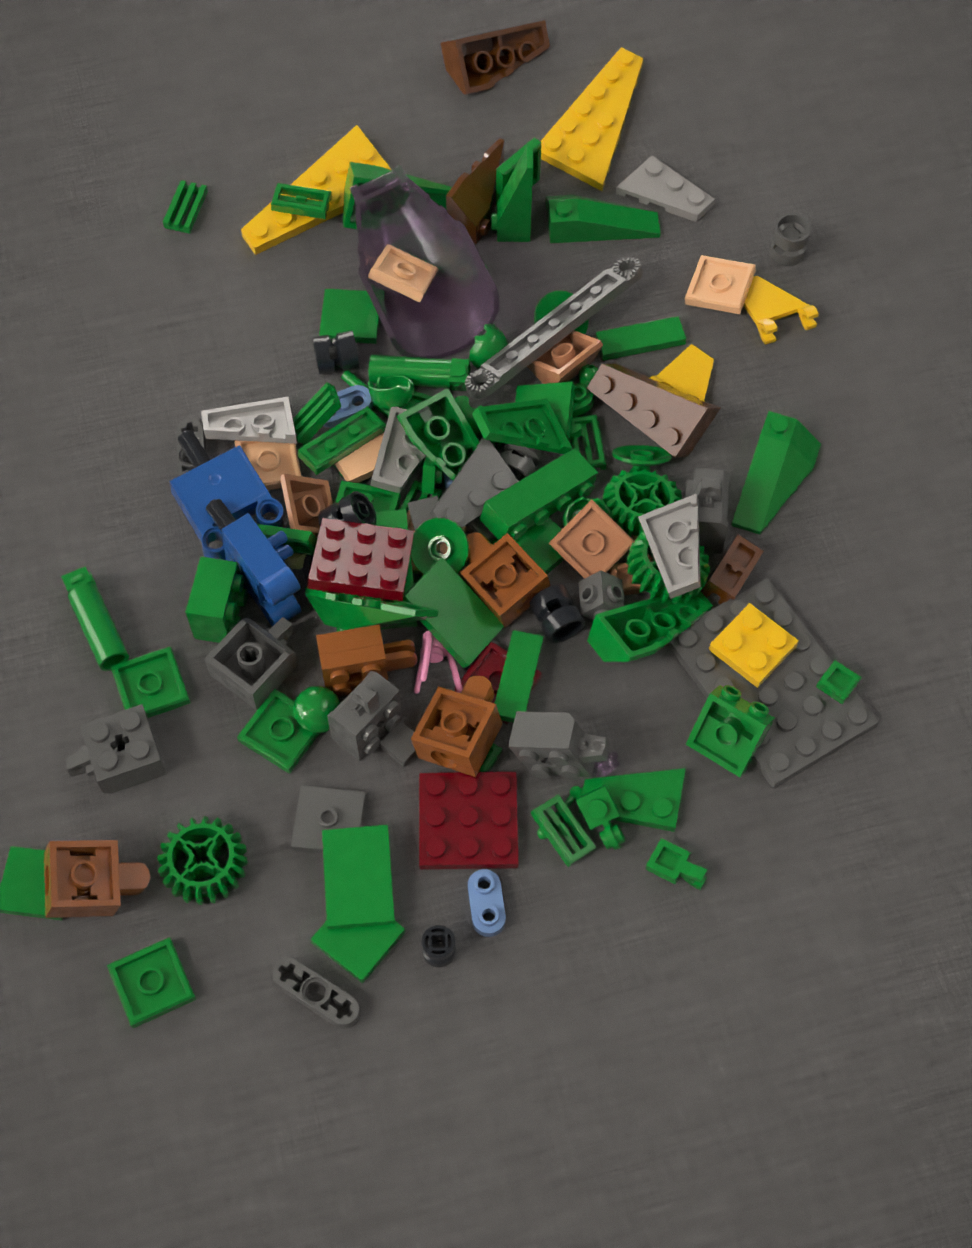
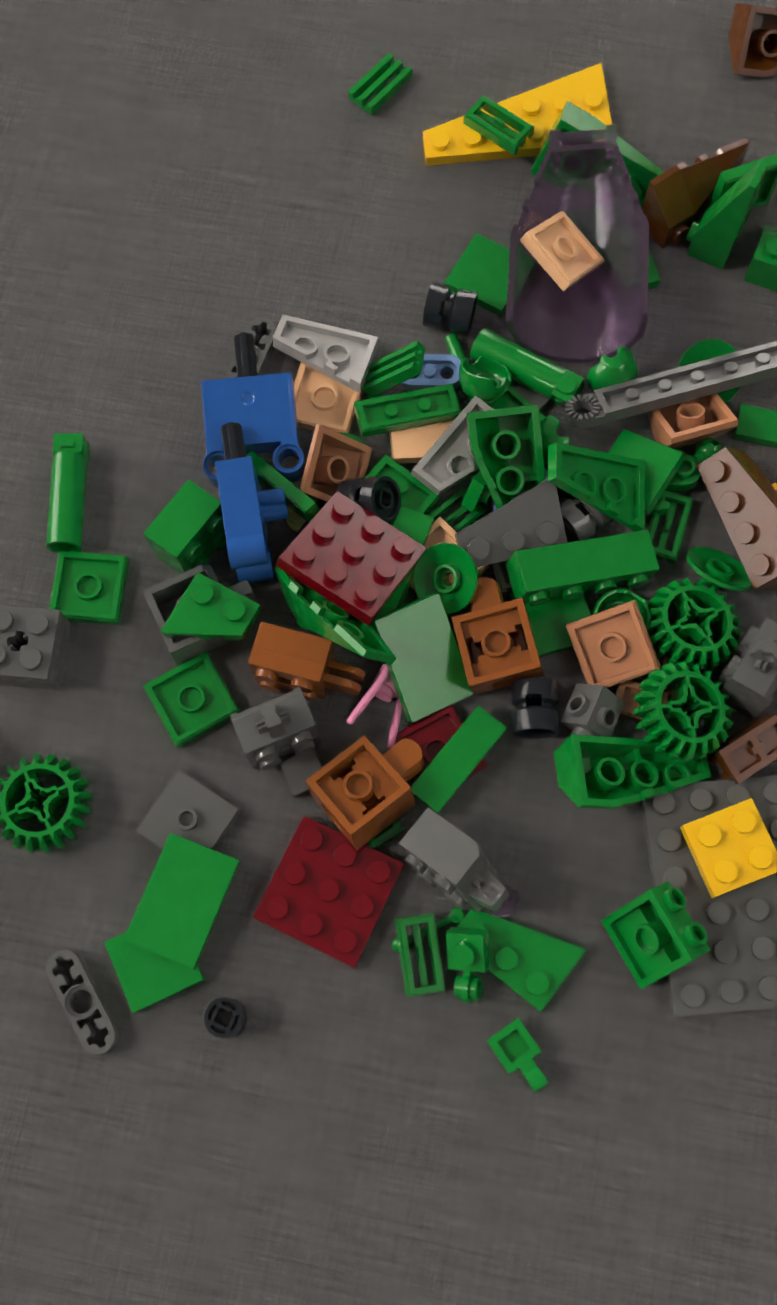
camera: 30 degrees right, 10 degrees up
(270, 648) = (211, 612): none -> green wing
(313, 707) = (232, 693): green hair -> none
(421, 510) = (447, 526): dark grey tile -> none
(486, 901) = (302, 992): medium blue plate -> none
(675, 543) = (697, 698): light grey wing -> none

